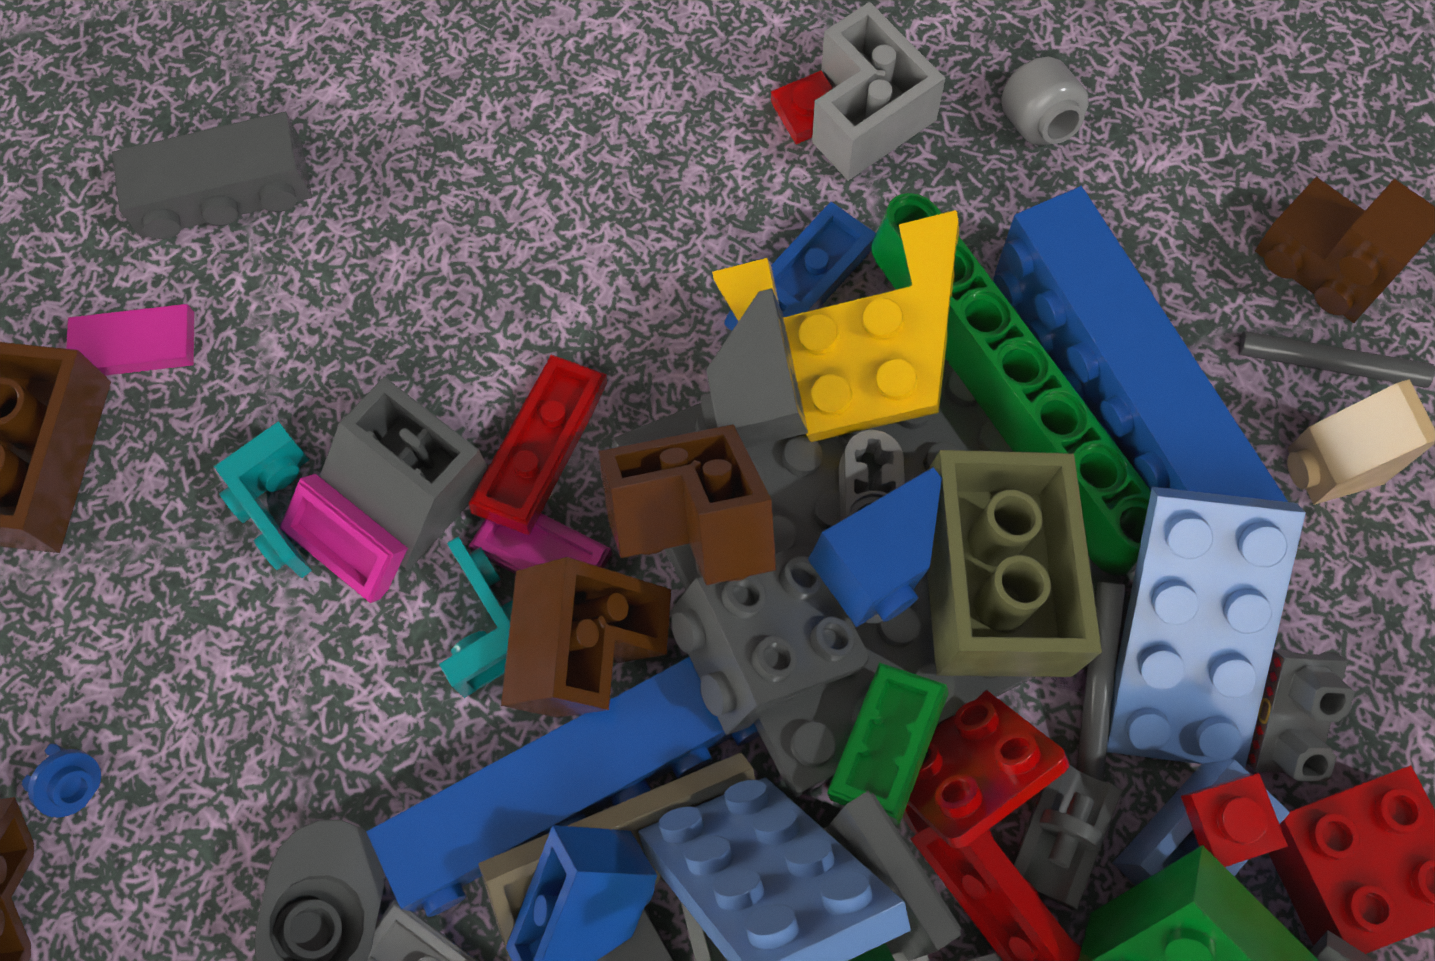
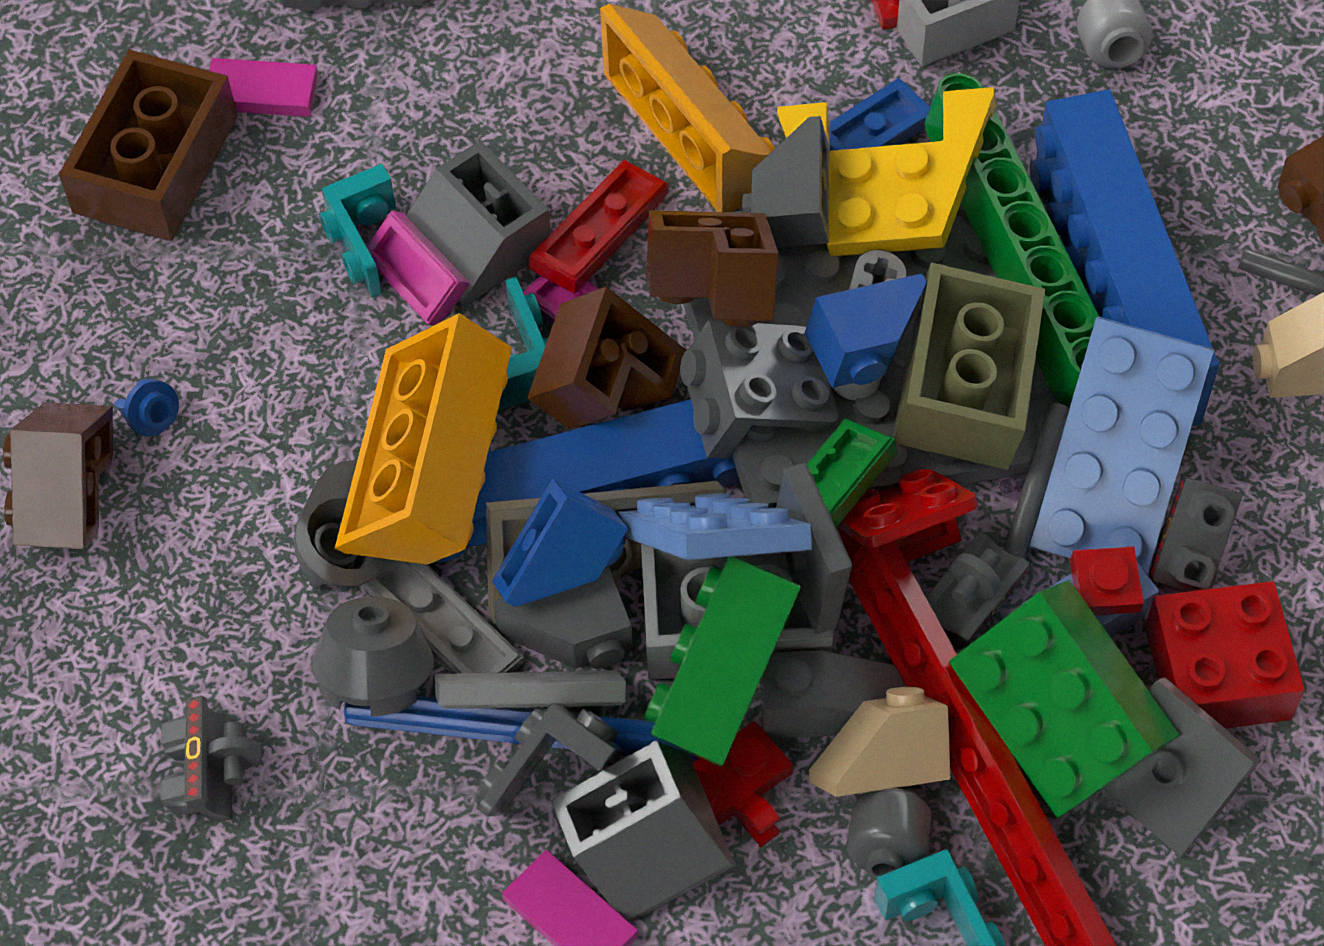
camera: 10 degrees right, 10 degrees down
(392, 799) = (426, 445): none -> light orange slope
(608, 283) = (681, 105): none -> light orange slope

